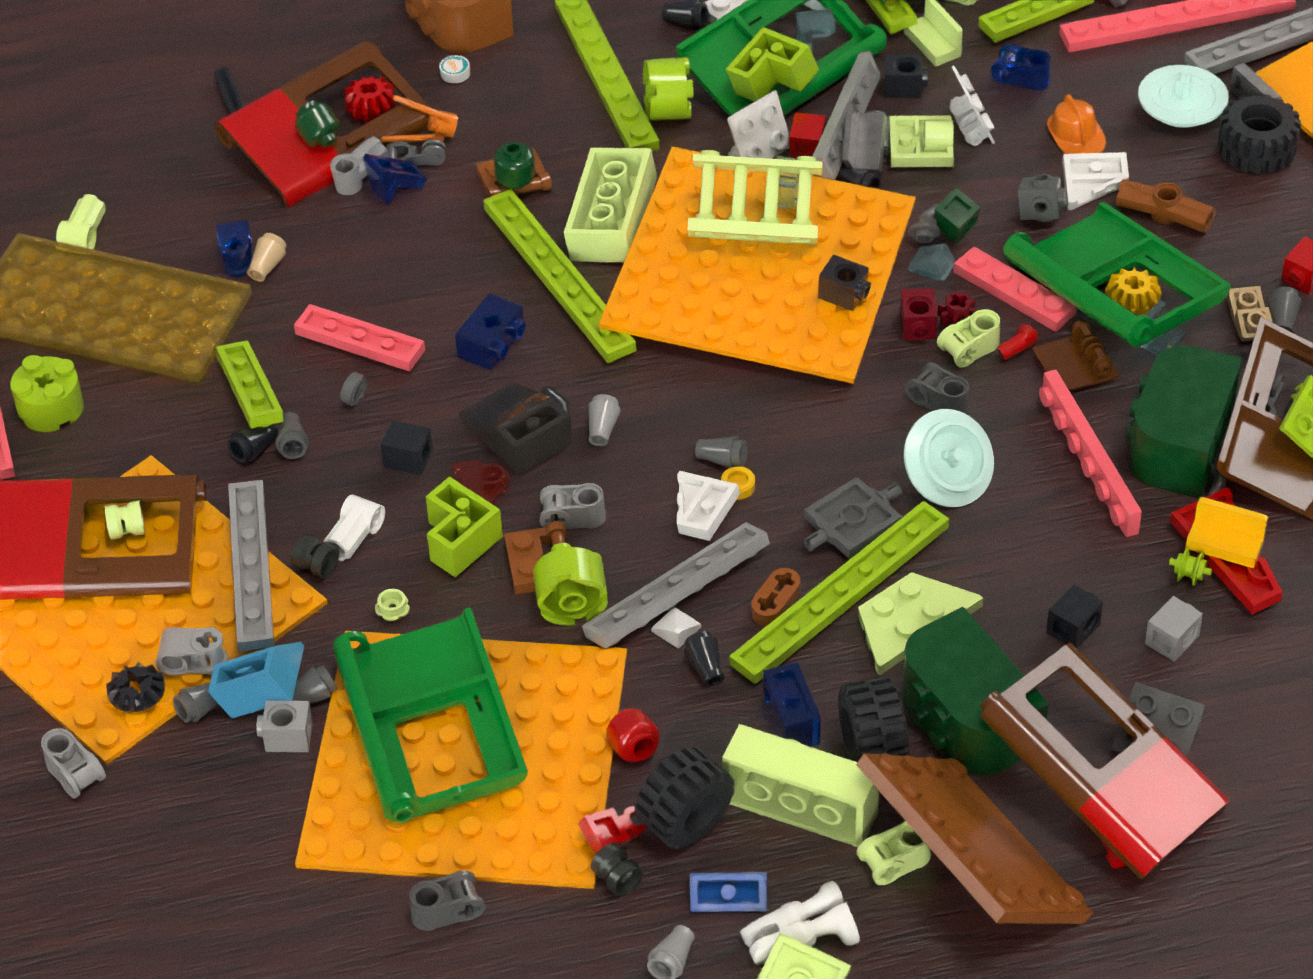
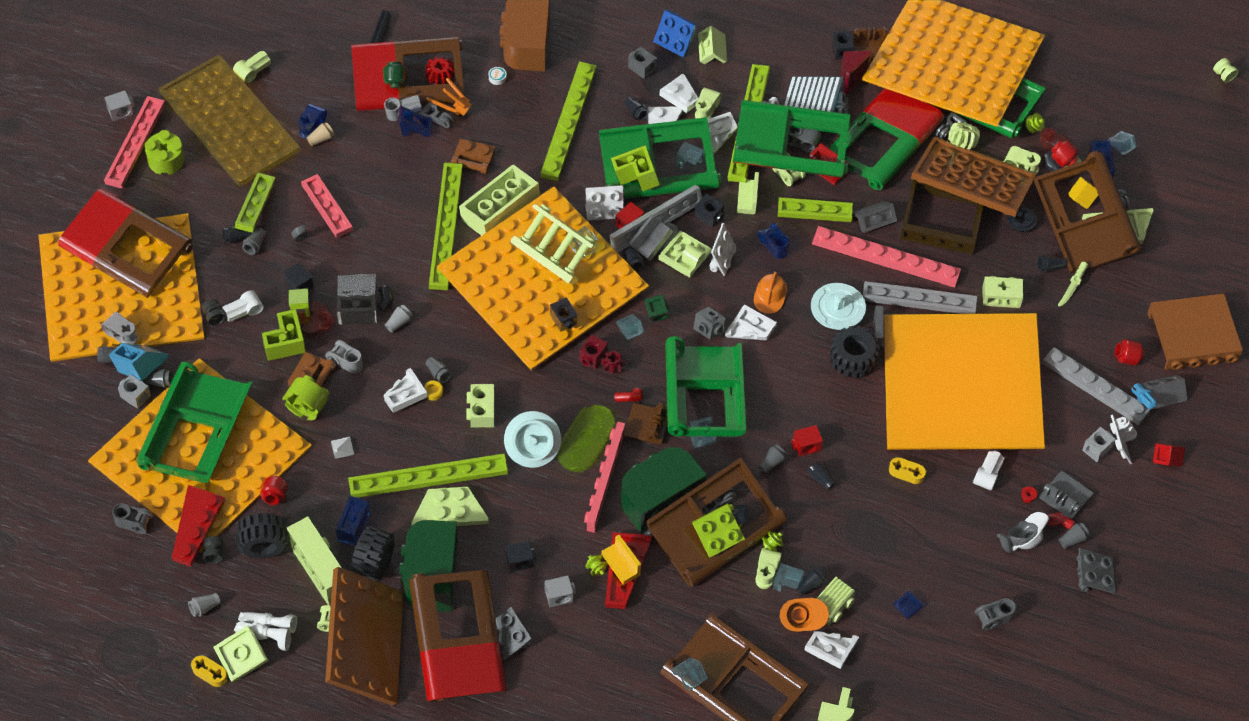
camera: 30 degrees right, 10 degrees up
(70, 761) = (32, 354): light grey piece -> none
(128, 699) = (91, 336): black gear -> none
(132, 517) = (144, 243): yellowish green wheel -> none
(251, 566) = (180, 300): light grey plate -> none
(392, 605) = (225, 354): yellowish green plate -> none
(434, 468) = (299, 300): none -> lime panel
(490, 332) = (387, 239): clear blue brick -> none
(514, 165) = (469, 153): dark green head -> none
(555, 848) = (196, 520): none -> red wing
(608, 828) = (223, 528): plate -> none
(667, 89) = (581, 150): lime brick -> none
(675, 585) = (357, 426): light grey plate -> none
(704, 655) = (339, 470): black cone -> none
(728, 892) = (253, 590): blue slope -> none
(770, 593) = (397, 459): dark orange beam -> none
(829, 457) = (481, 405): none -> yellowish green brick
(851, 516) = (466, 441): dark grey plate -> none
(926, 227) = (639, 305): dark grey plate -> none
(939, 389) = (565, 397): dark grey piece -> none
(972, 338) = (606, 380): yellowish green piece -> none
(1013, 422) = (585, 438): none -> clear neon green tile
(1014, 289) = (654, 362): coral plate -> none
(1134, 290) = (706, 403): yellow gear -> none
(1165, 204) = (765, 356): dark orange piece -> none
(1246, 308) = (757, 449): tan slope -> none

